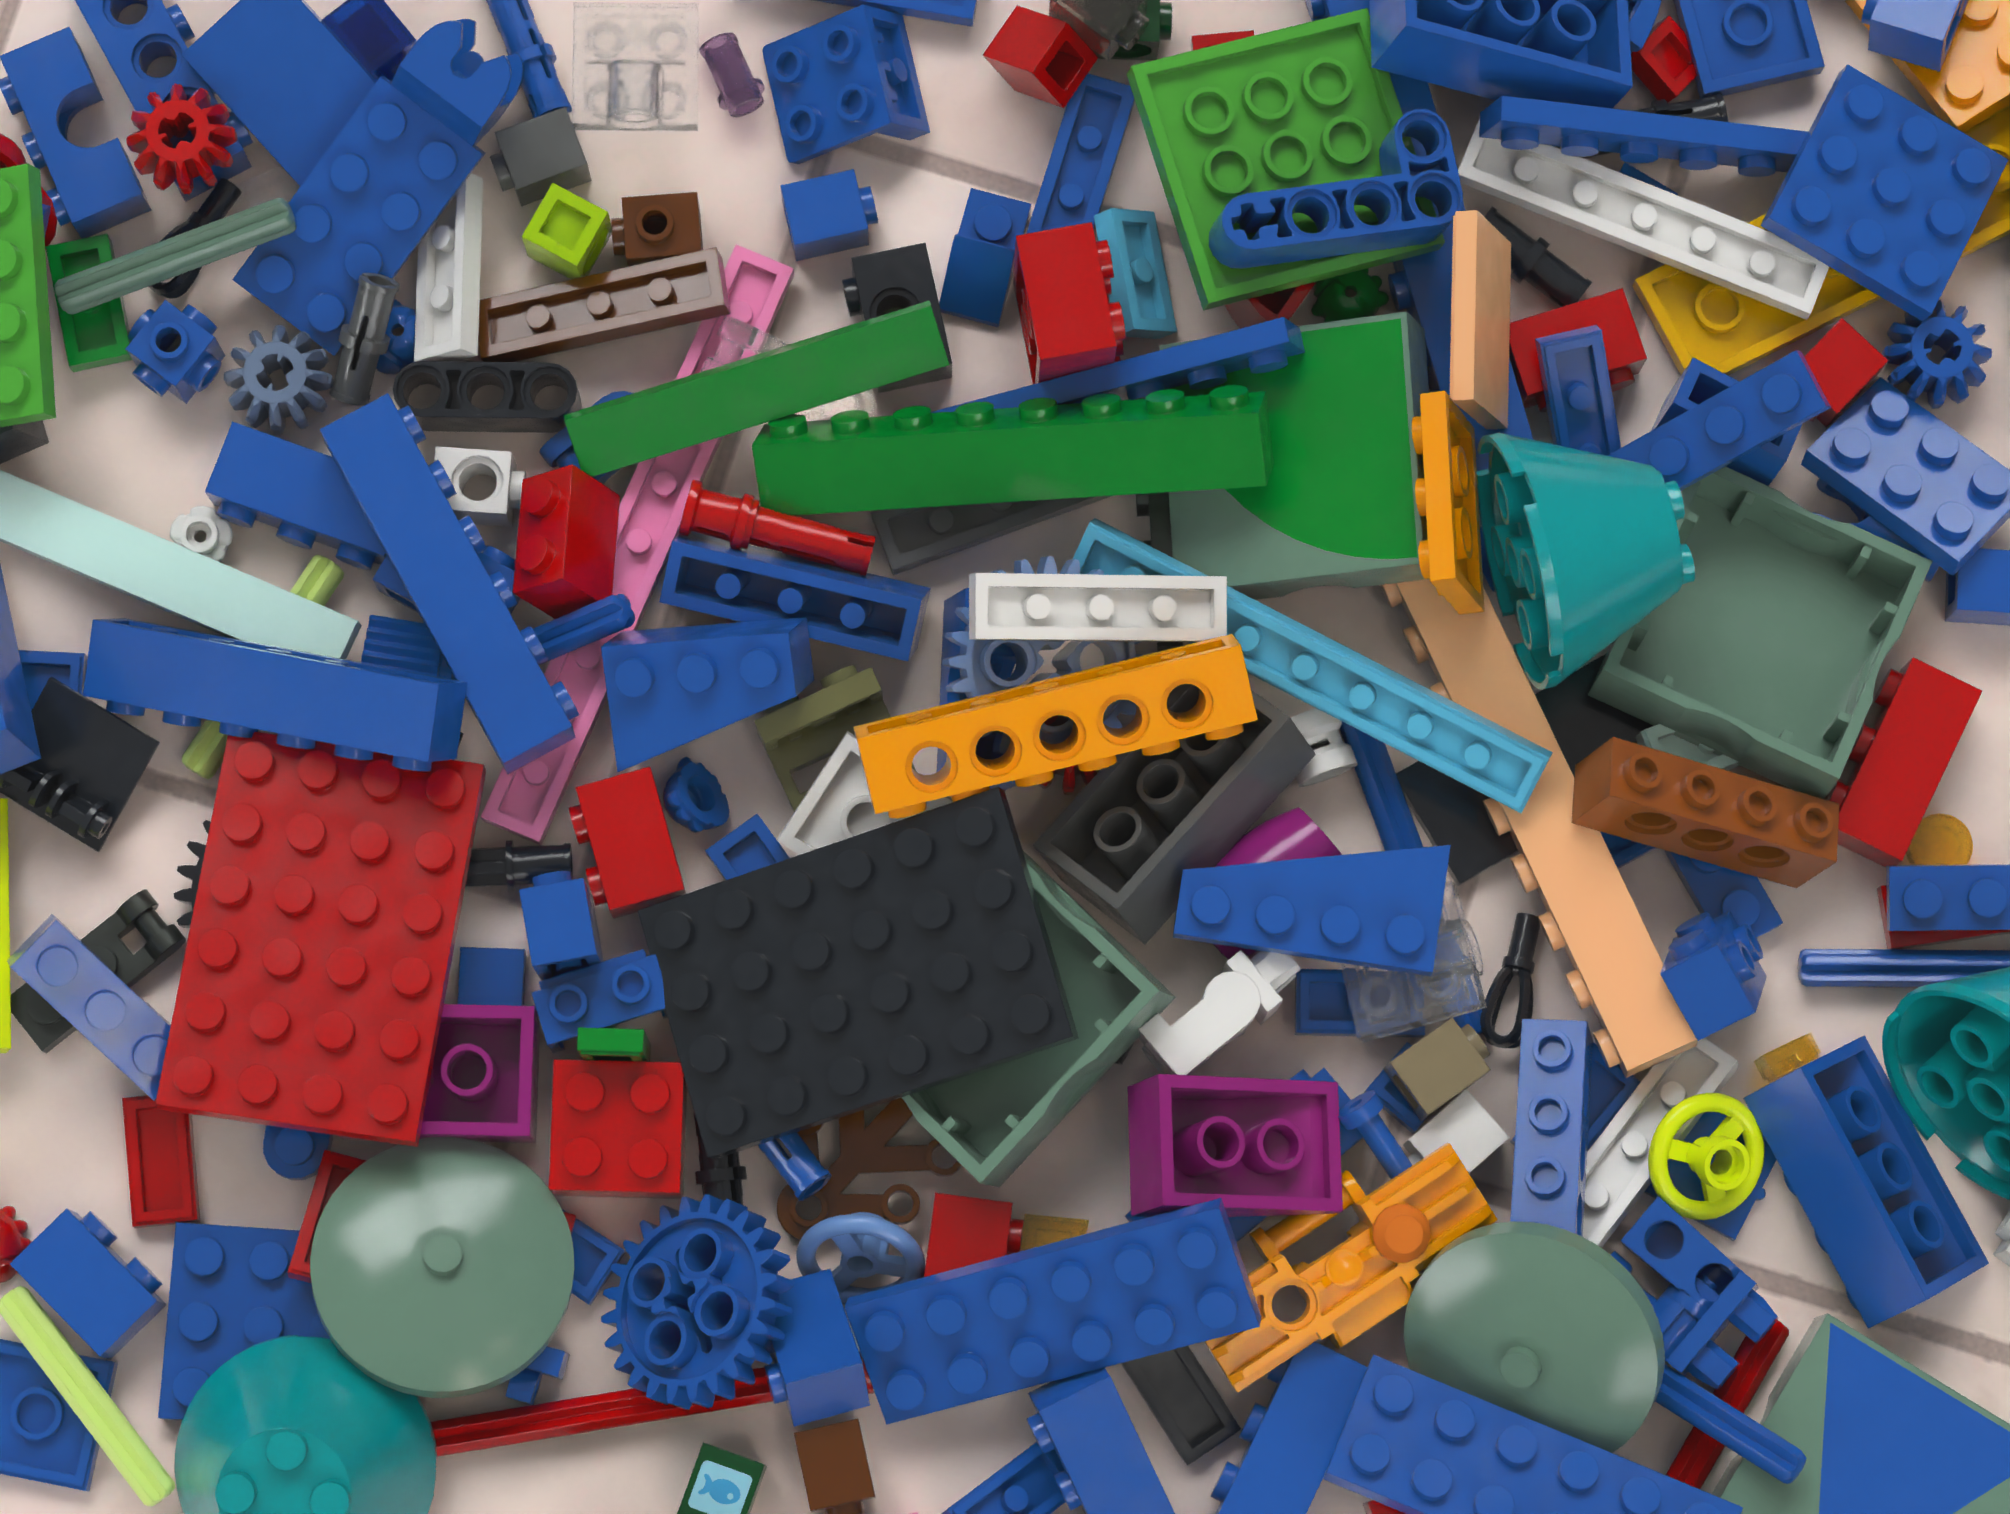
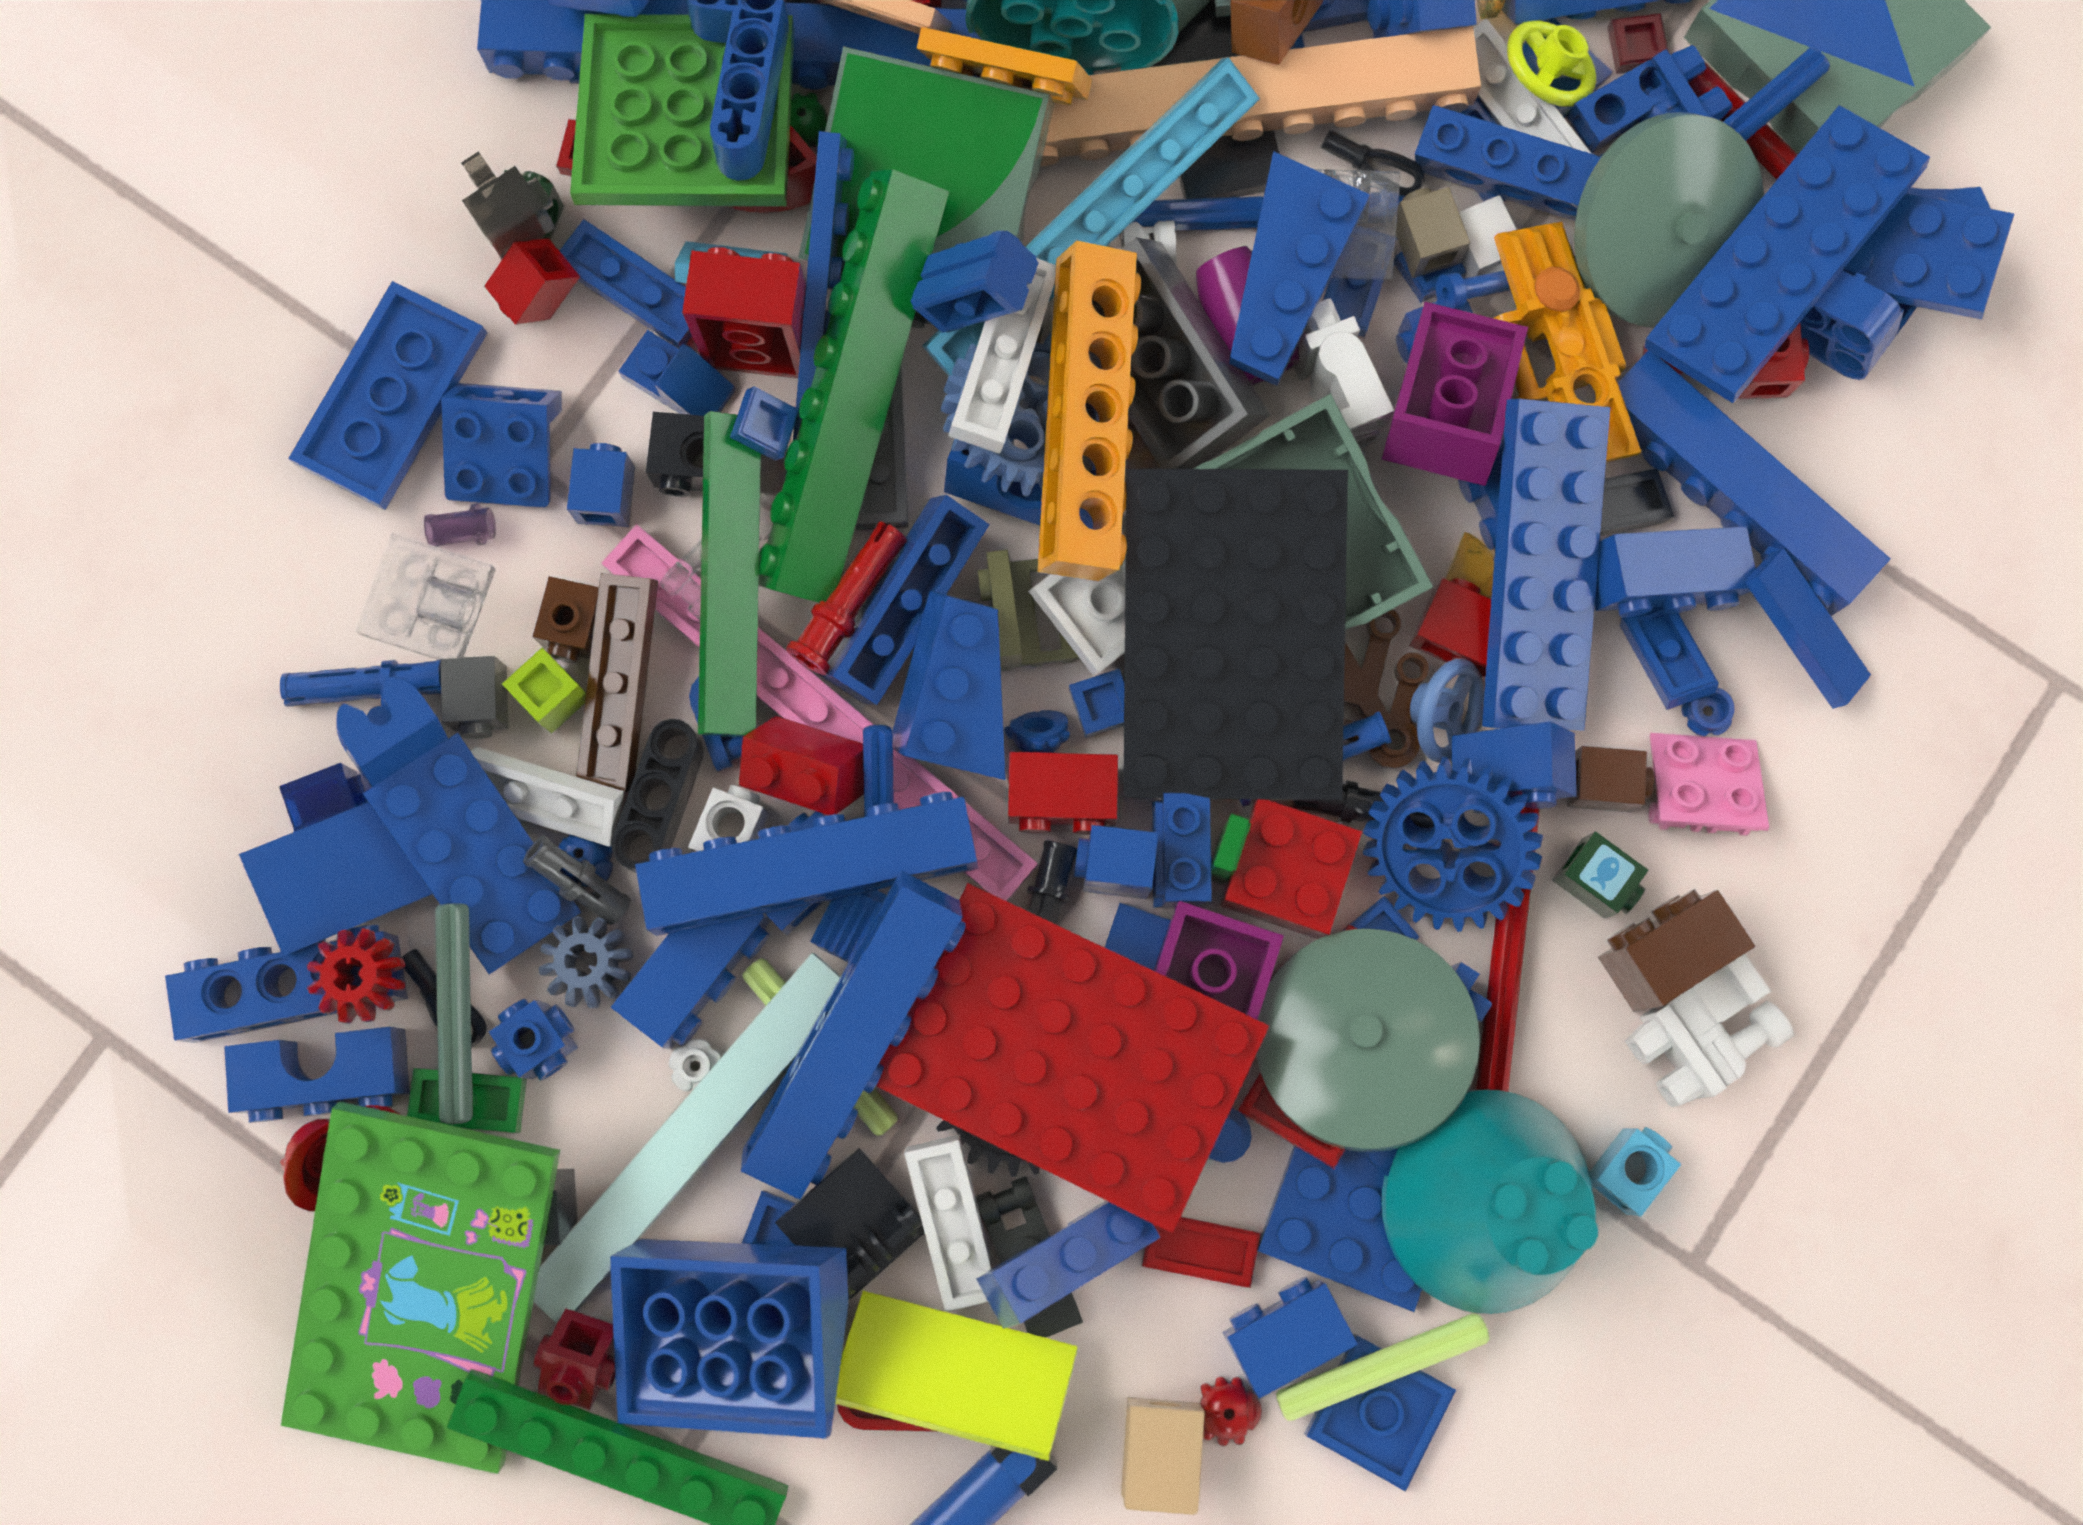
camera: 70 degrees left, 0 degrees up
(111, 866) = (950, 1219): none -> white plate
(941, 370) = (764, 423): none -> blue tile
(1162, 547) = (975, 281): none -> blue brick
(1783, 1261) = (1636, 40): none -> dark red tile

